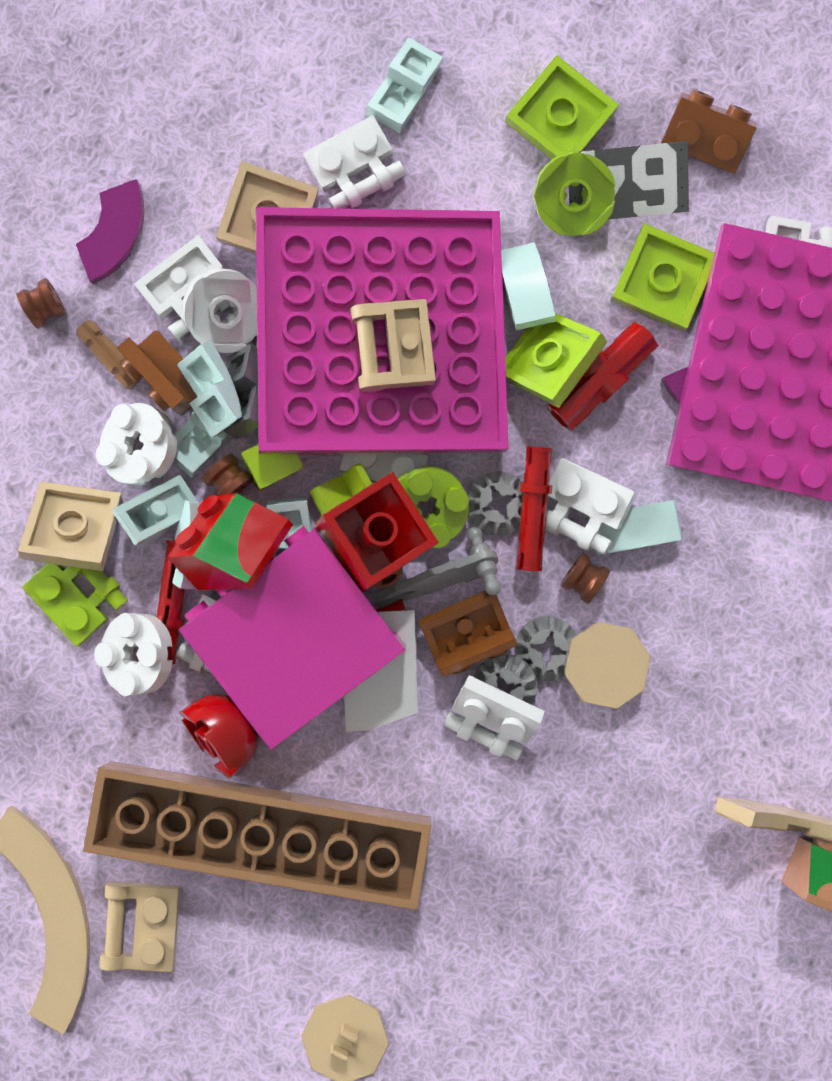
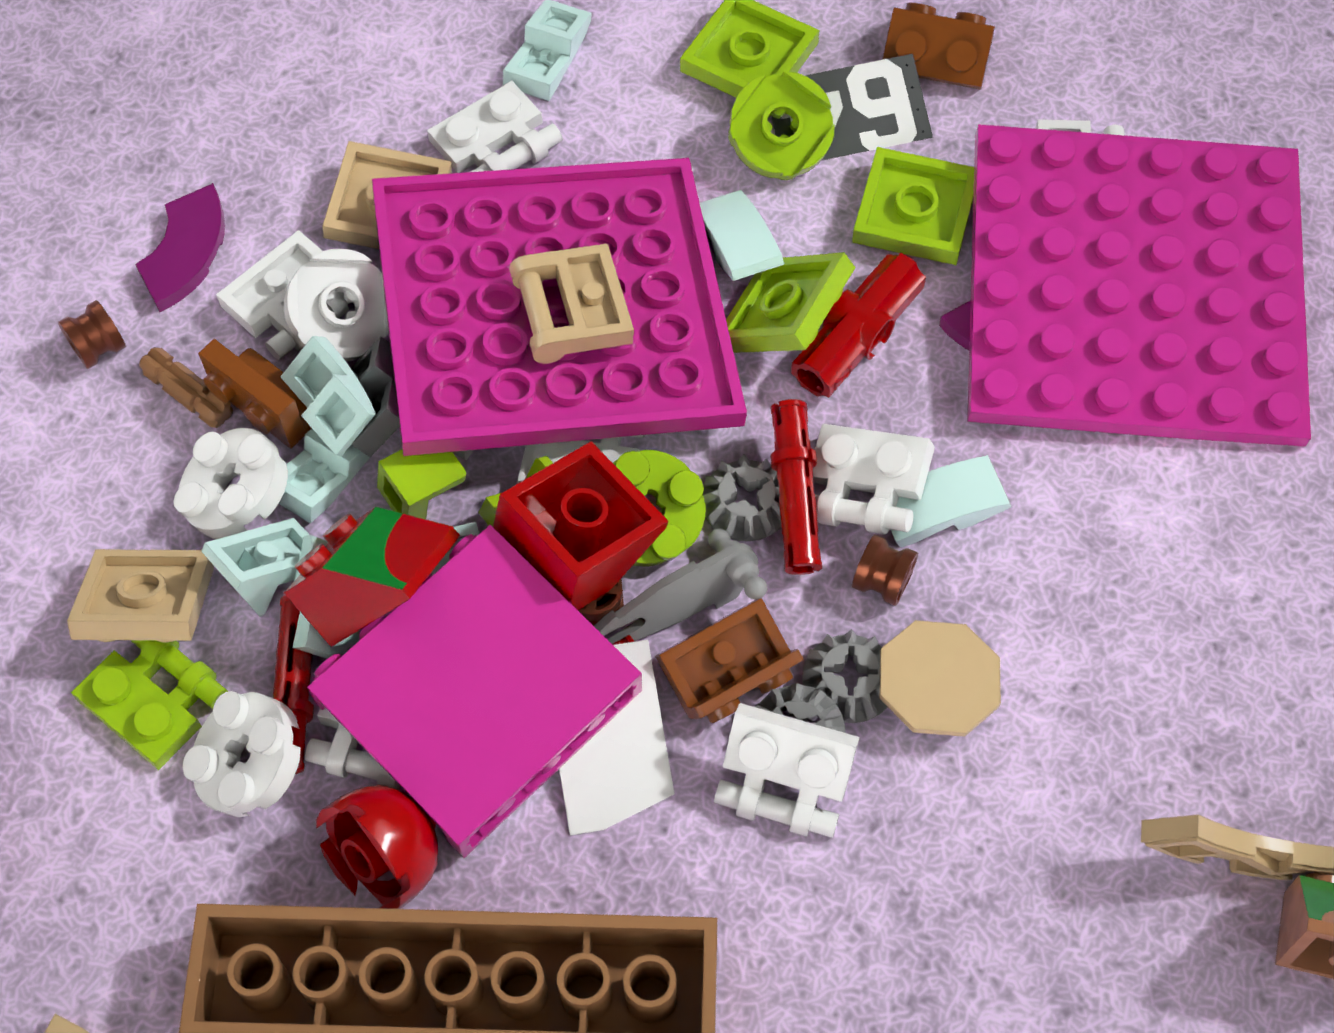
camera: 10 degrees left, 25 degrees down
(227, 476) = (357, 498): copper wheel -> none

